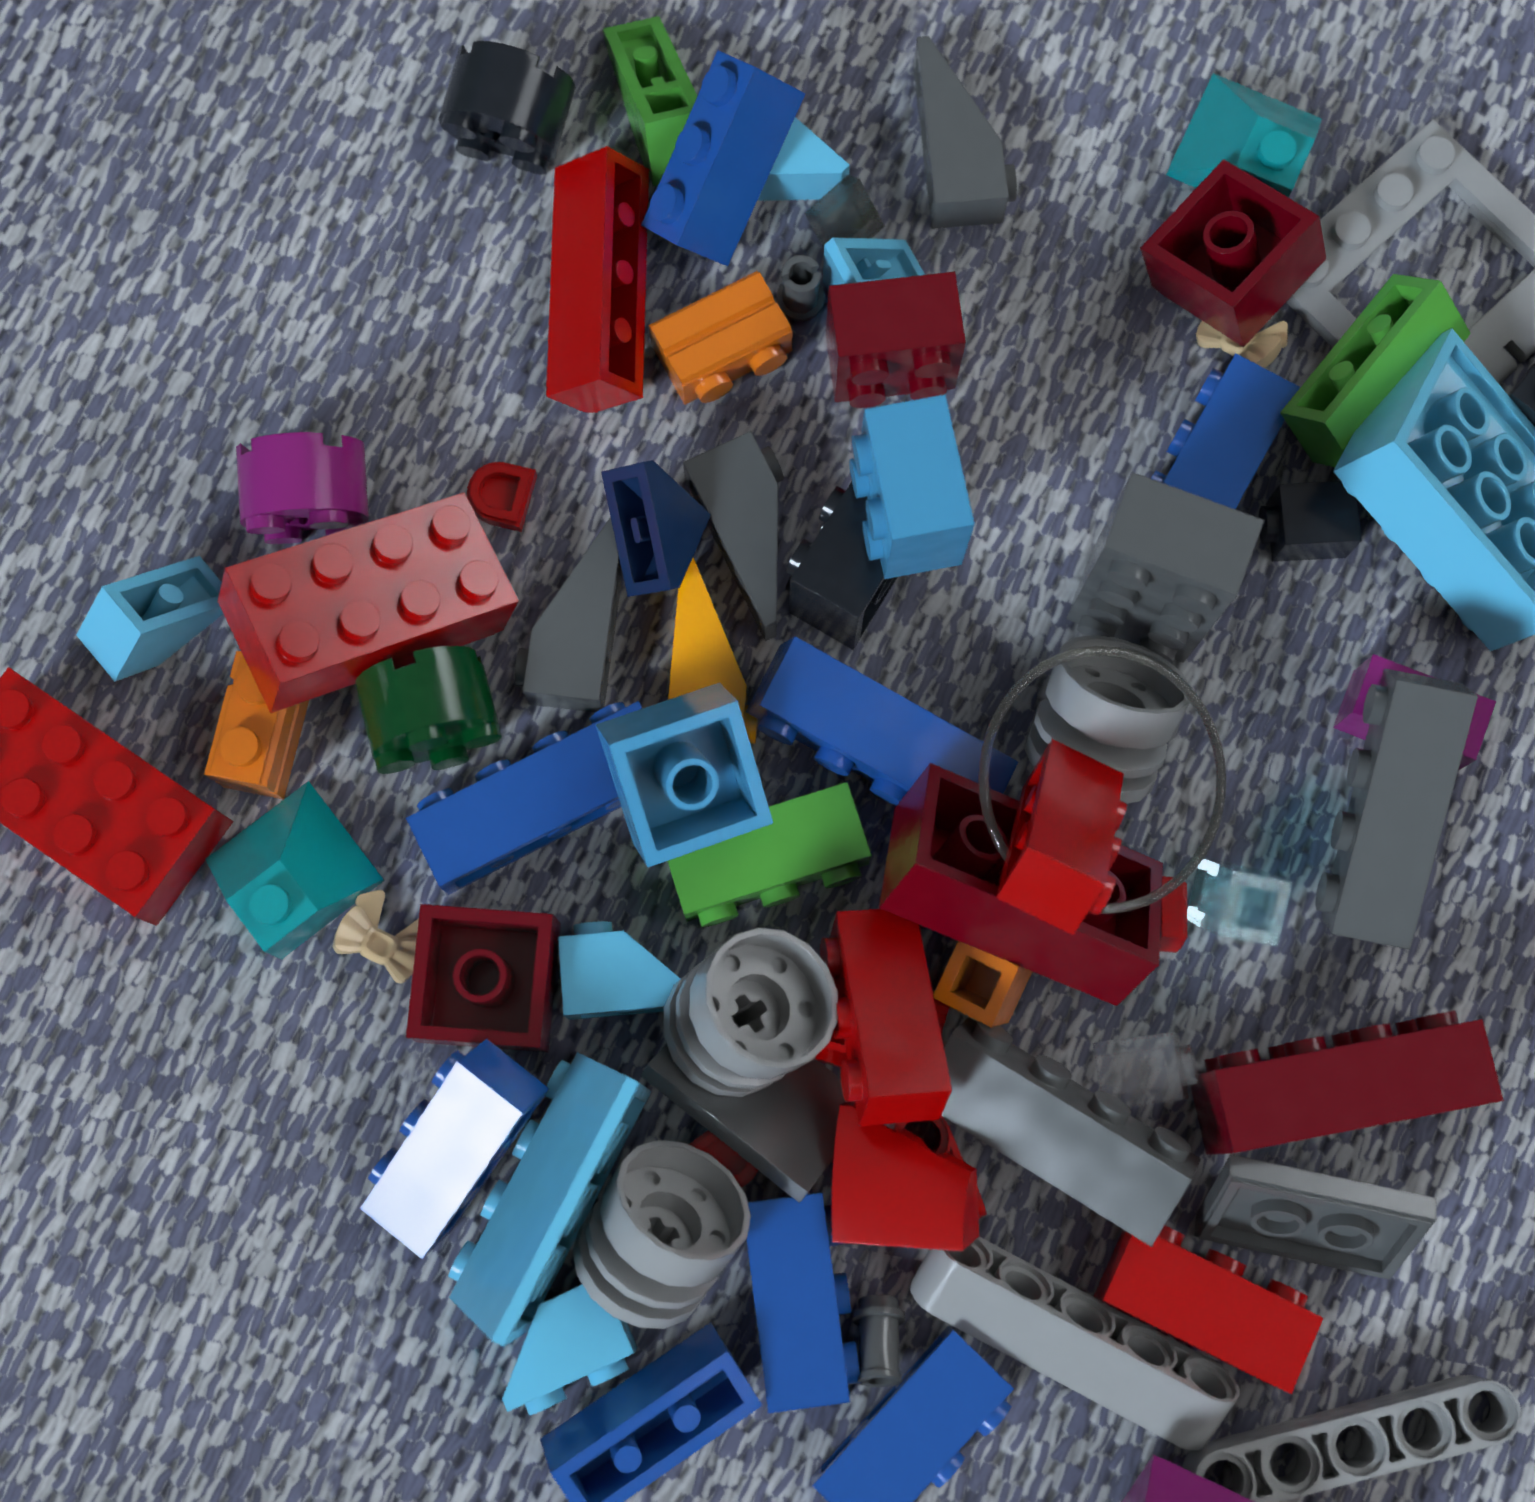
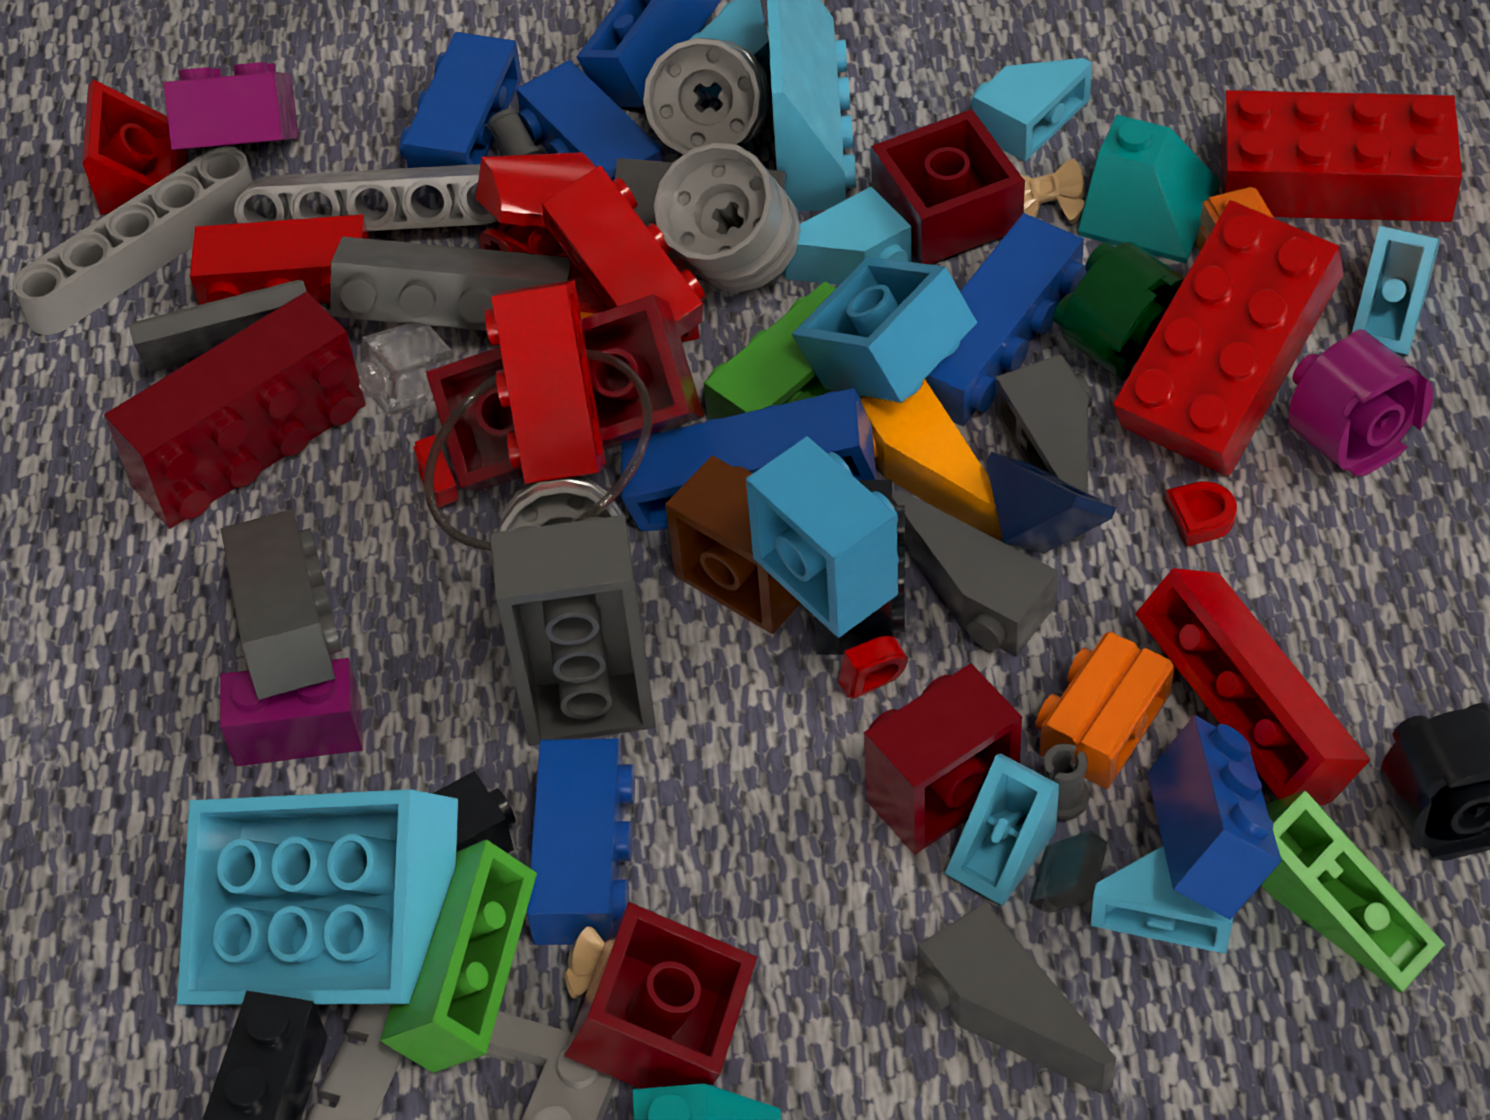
camera: 155 degrees right, 25 degrees down
(324, 1060) = (1032, 102): none -> medium azure slope
(451, 1145) = (891, 81): brick -> none
(937, 642) = (714, 546): none -> reddish brown brick
(1239, 902) = (382, 499): clear light blue brick -> none

